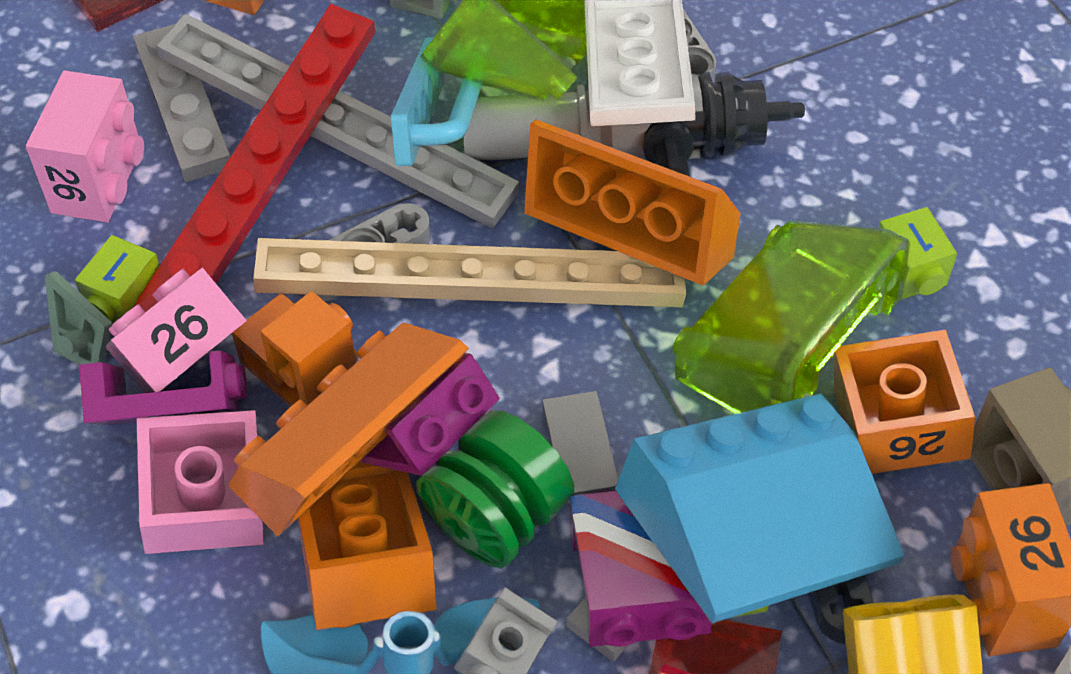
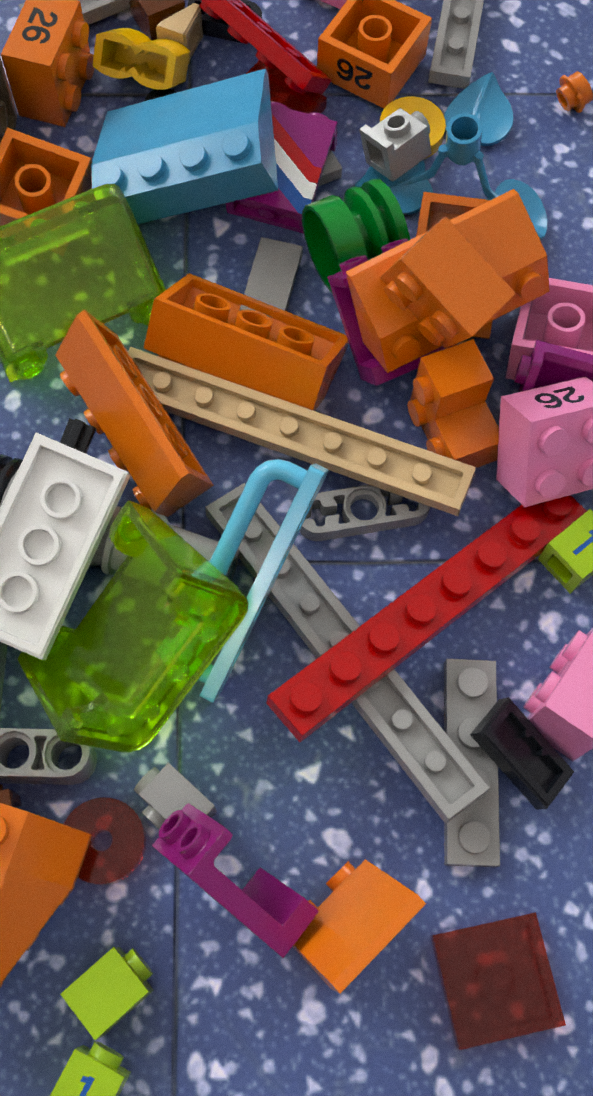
camera: 160 degrees left, 15 degrees up
(154, 102) = (522, 753): none -> black plate
(341, 328) = (446, 285): none -> orange brick
(572, 347) = (276, 355): none -> orange slope

